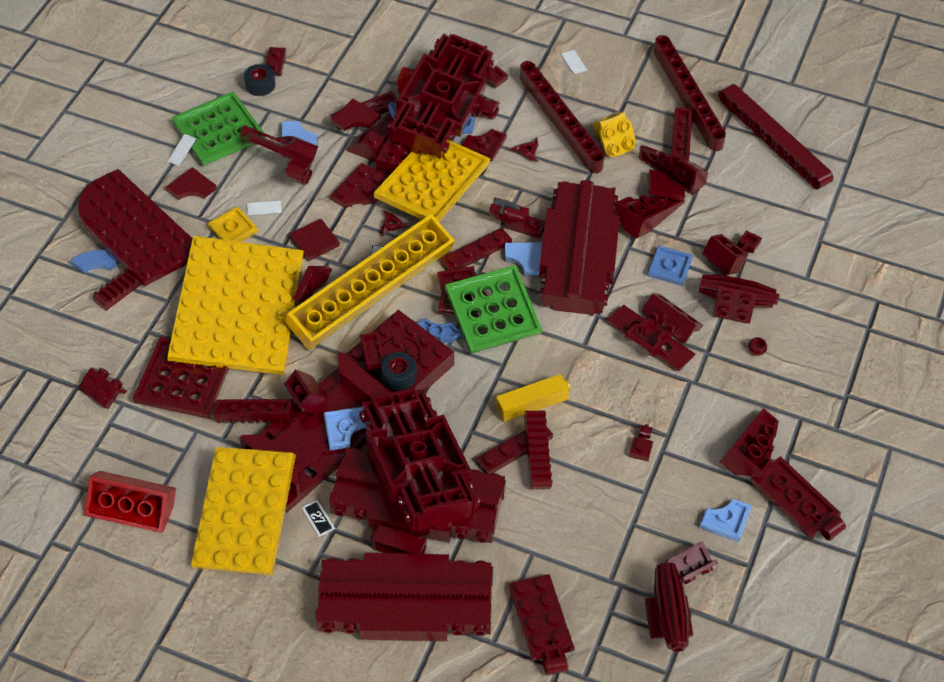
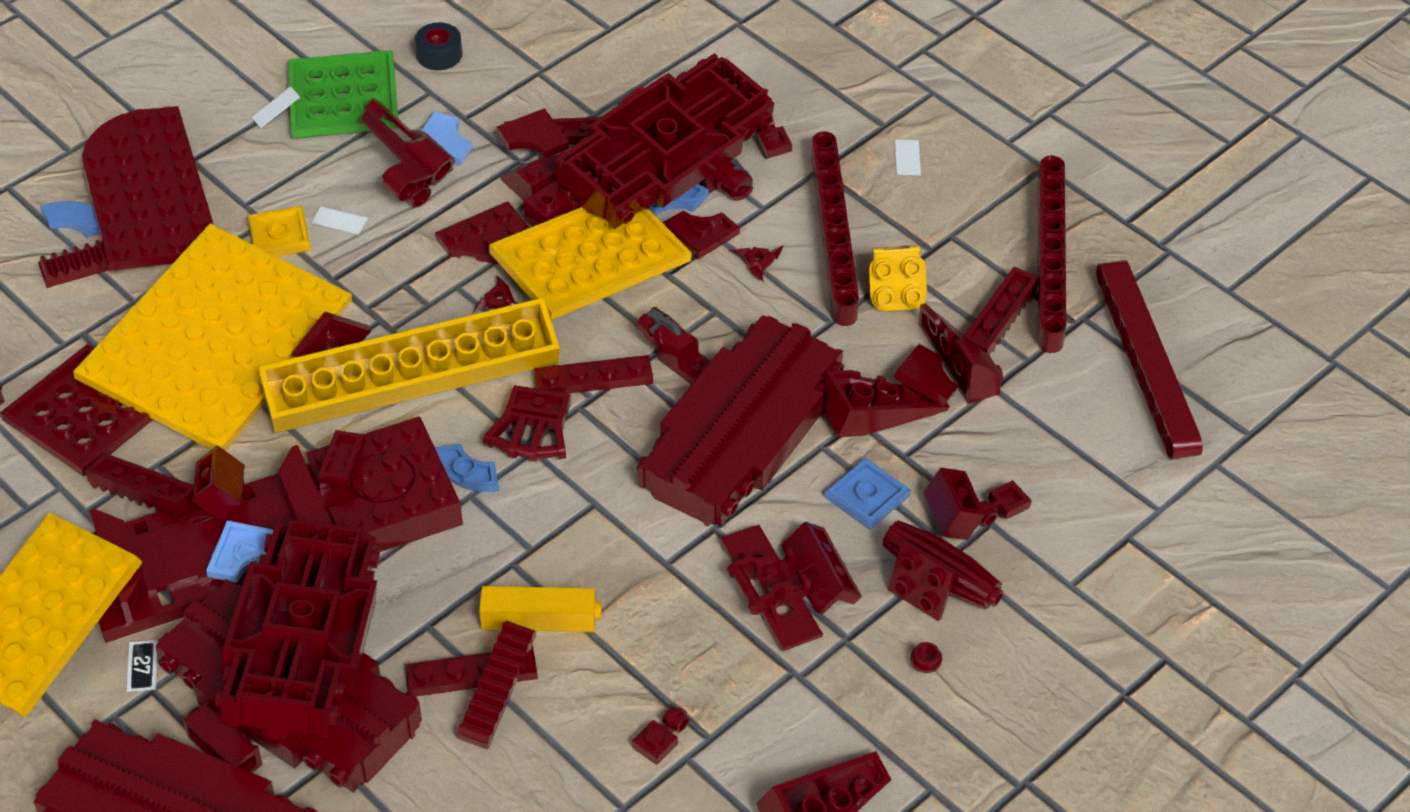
camera: 25 degrees right, 5 degrees down
(191, 184) = (260, 157): dark red tile -> none
(276, 59) = (480, 28): dark red plate -> none
(314, 239) = (377, 285): dark red tile -> none
(398, 371) = (357, 498): black wheel -> none
(494, 337) = (568, 505): bright green piece -> none
(525, 255) = (653, 404): light blue tile -> none

